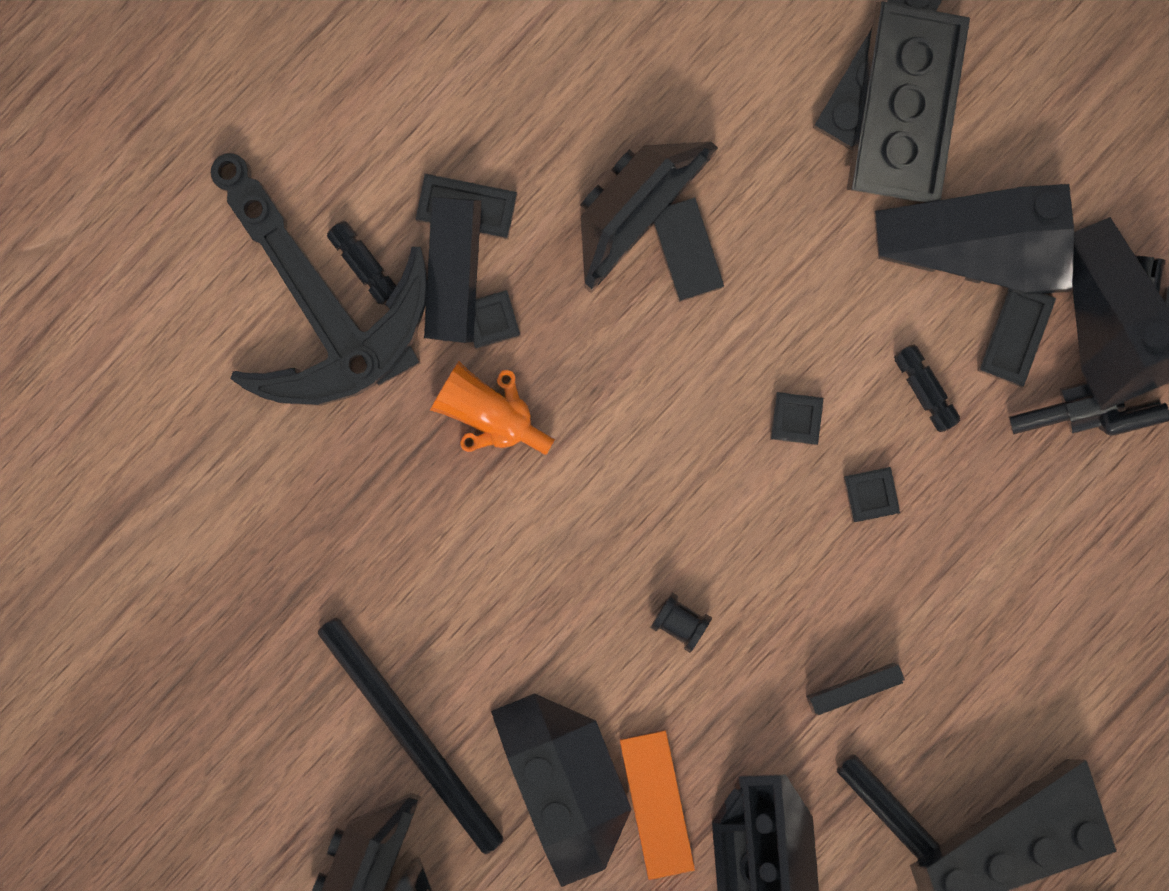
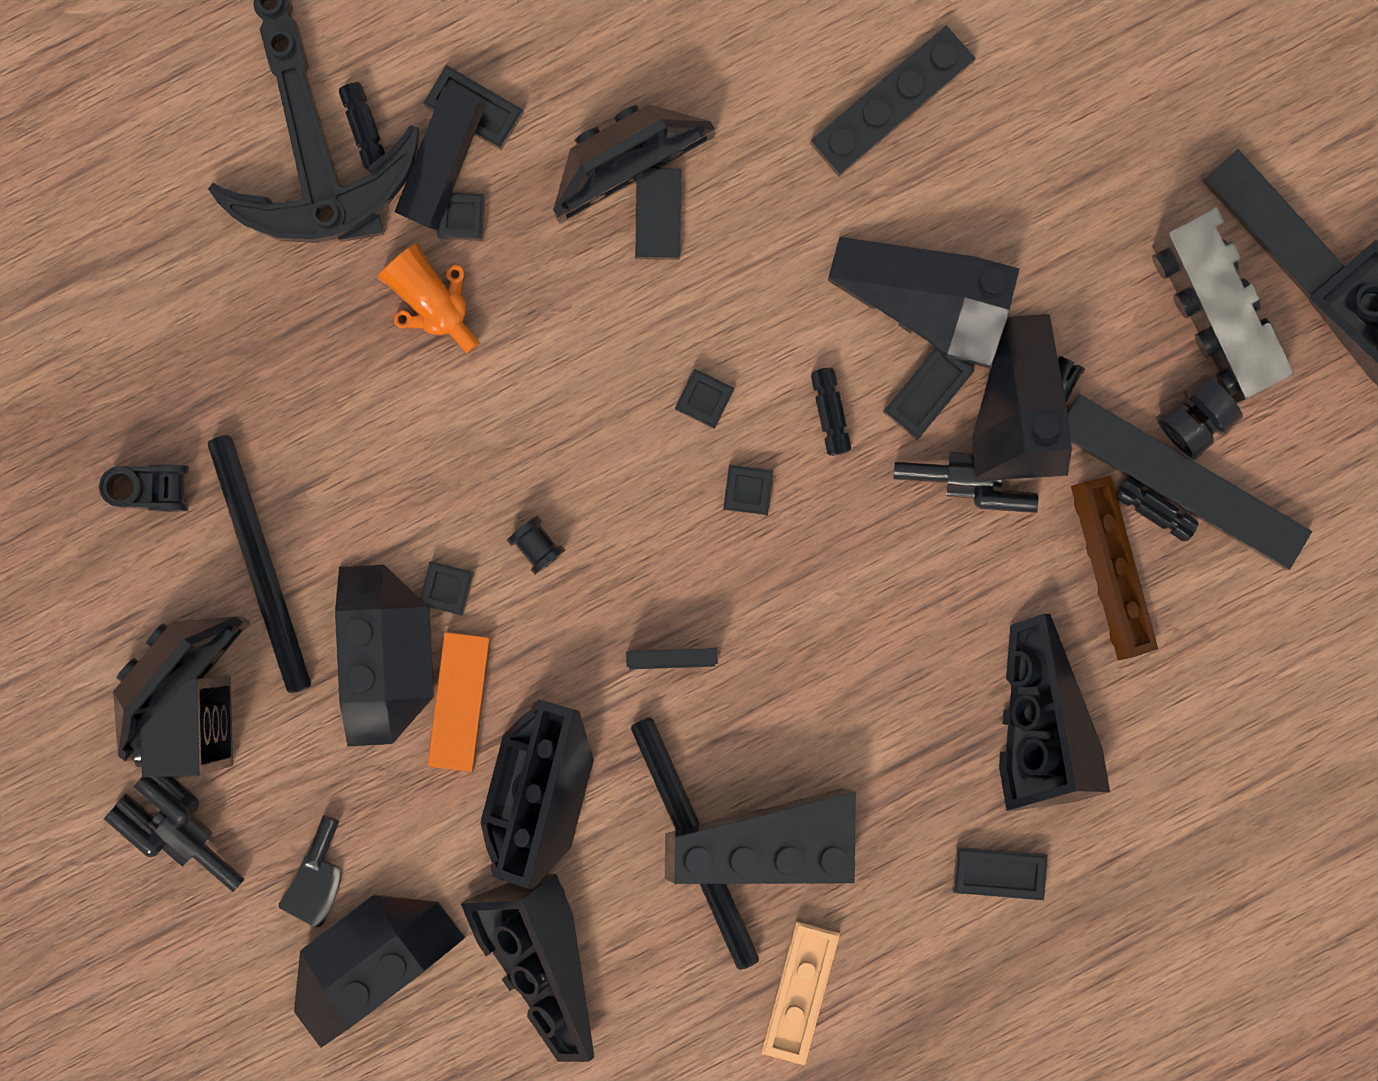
camera: 20 degrees right, 0 degrees up
(276, 697) = (154, 487): none -> black piece
(605, 695) = (447, 588): none -> black tile
(908, 102) = (901, 148): black tile -> none

